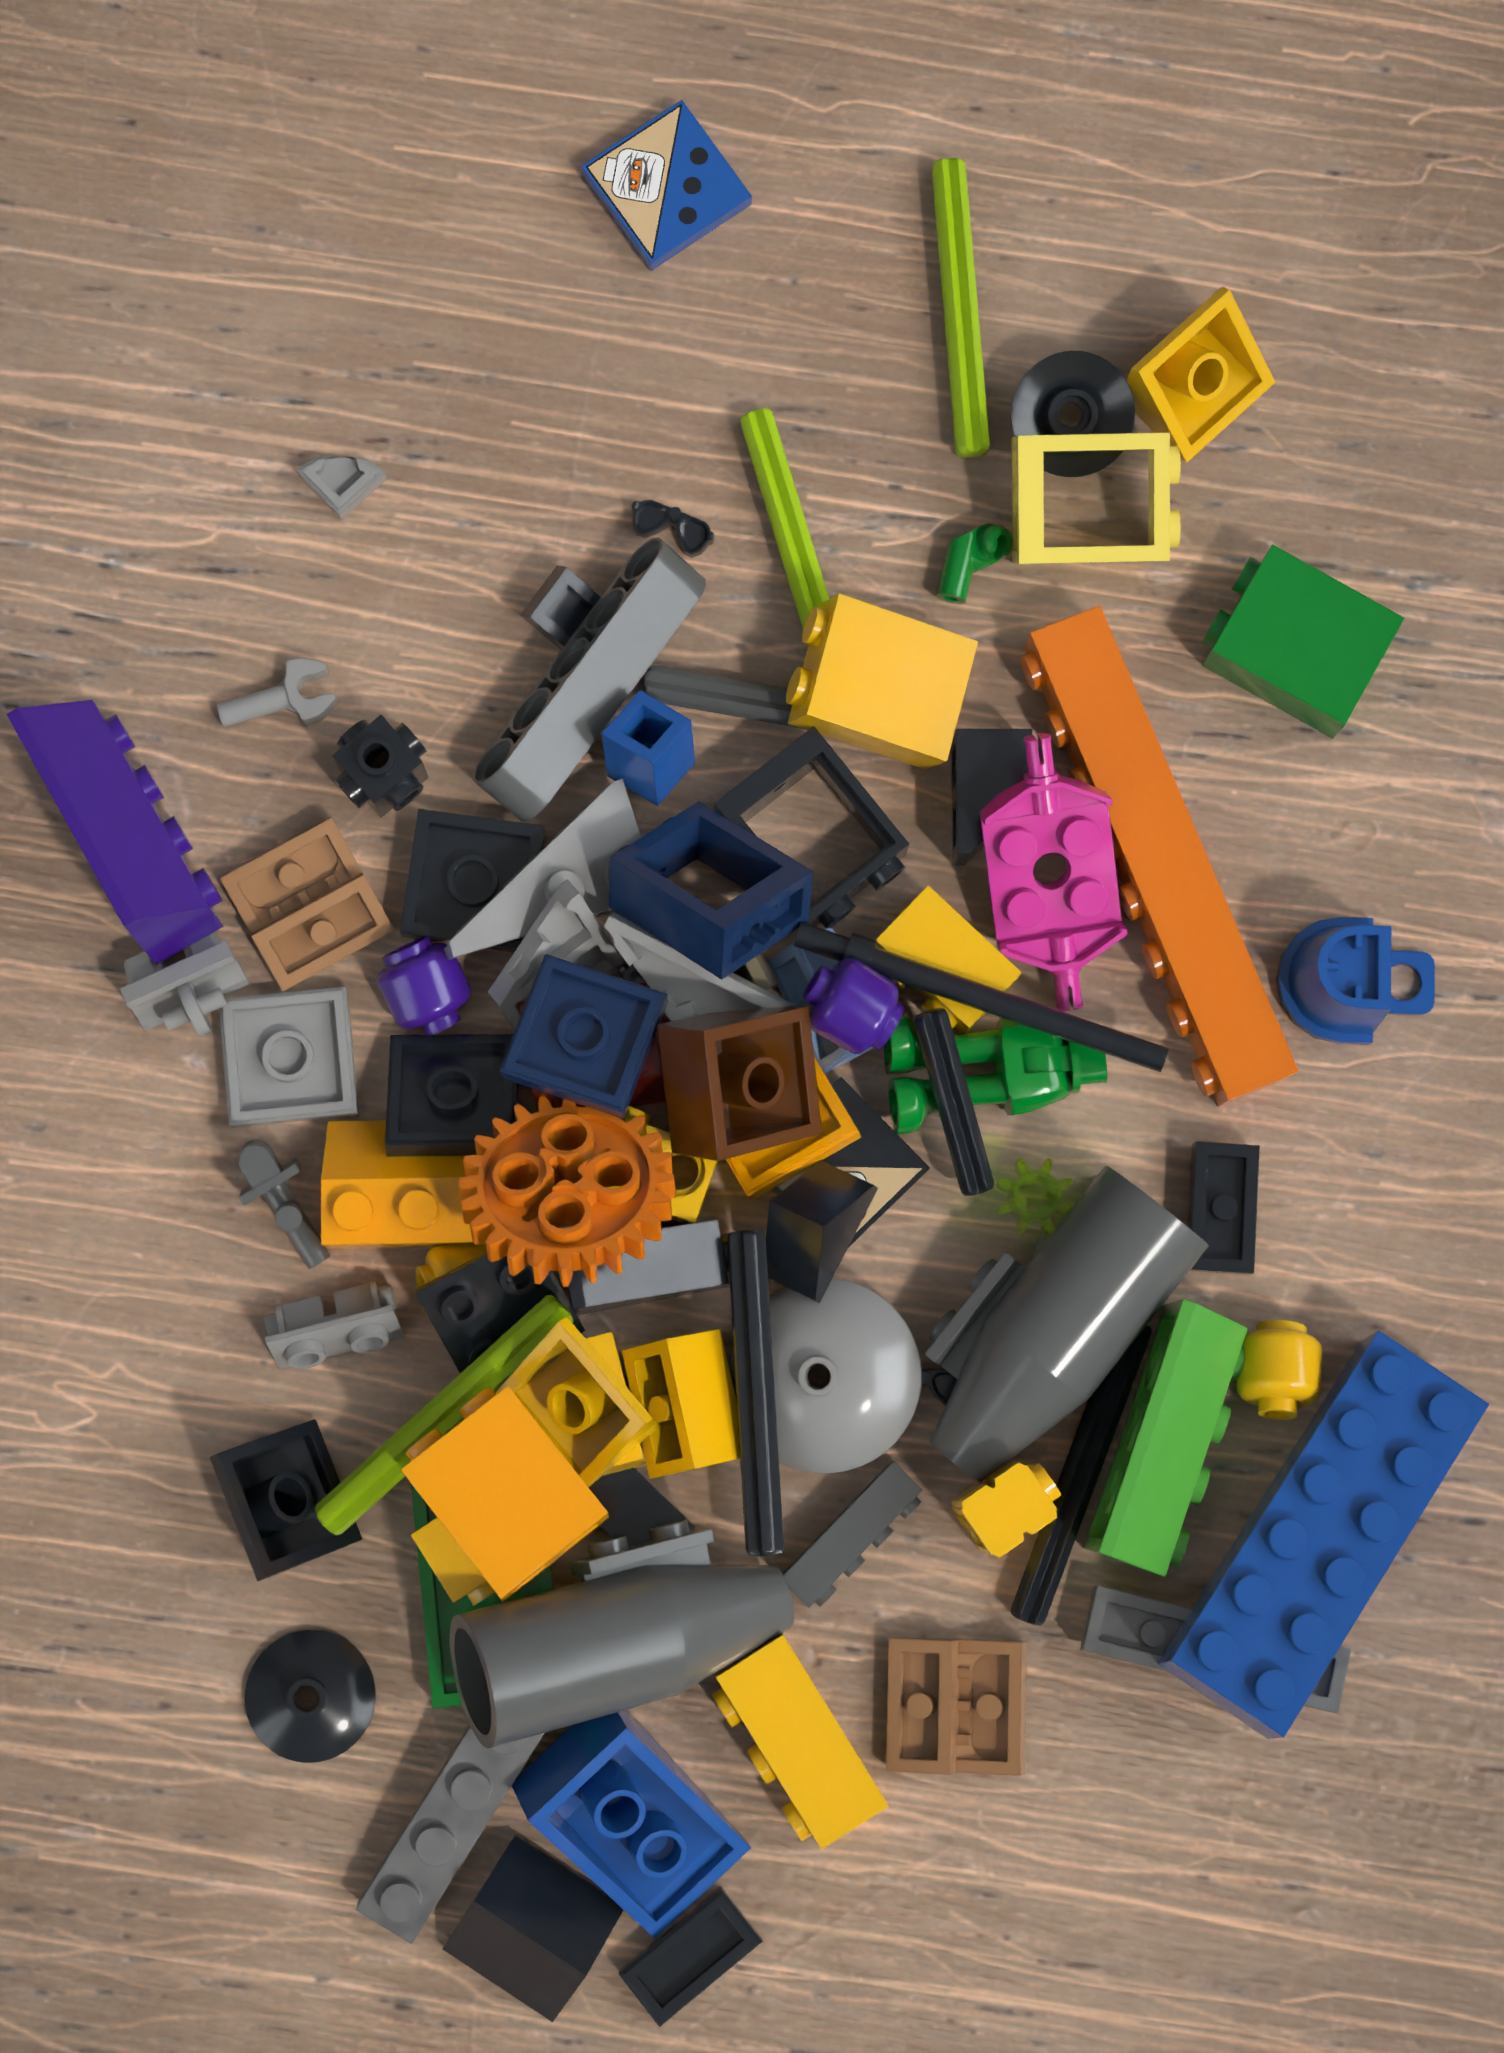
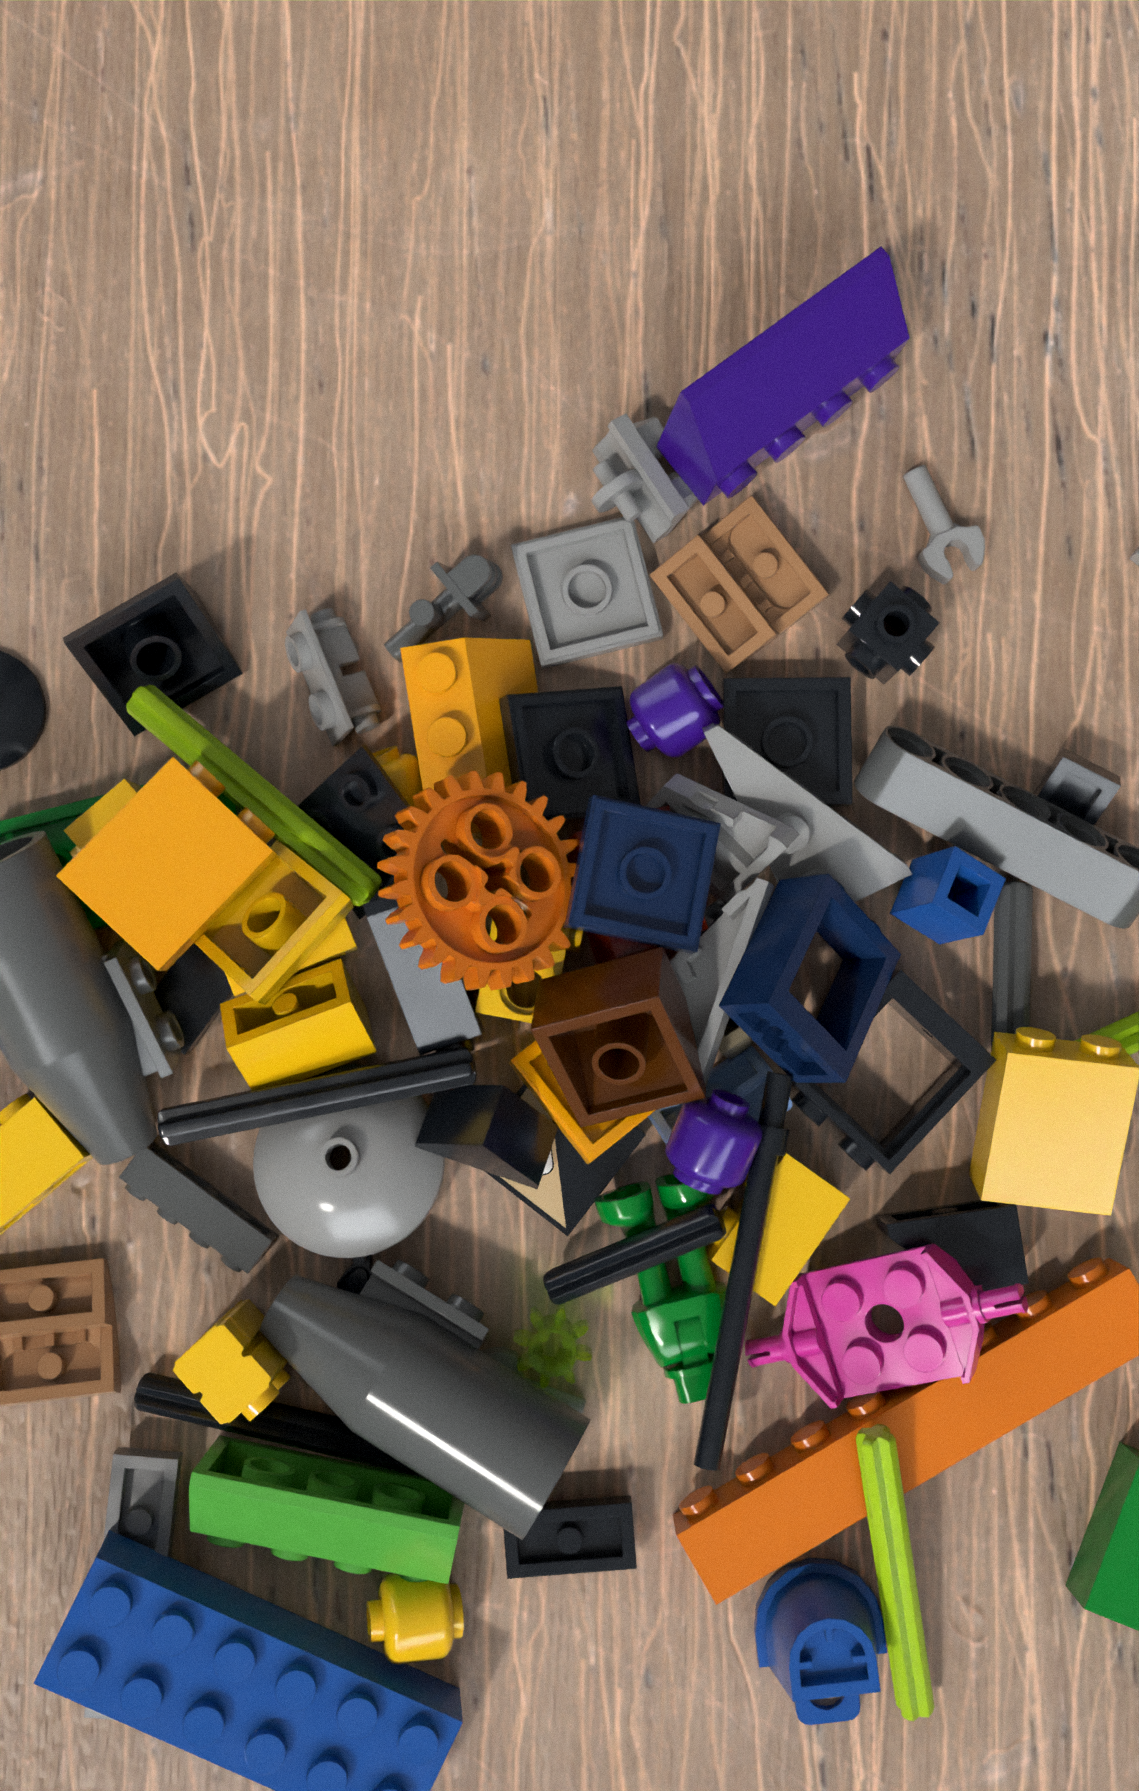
camera: 90 degrees right, 5 degrees up
(1289, 896) = (895, 1571): none -> lime axle

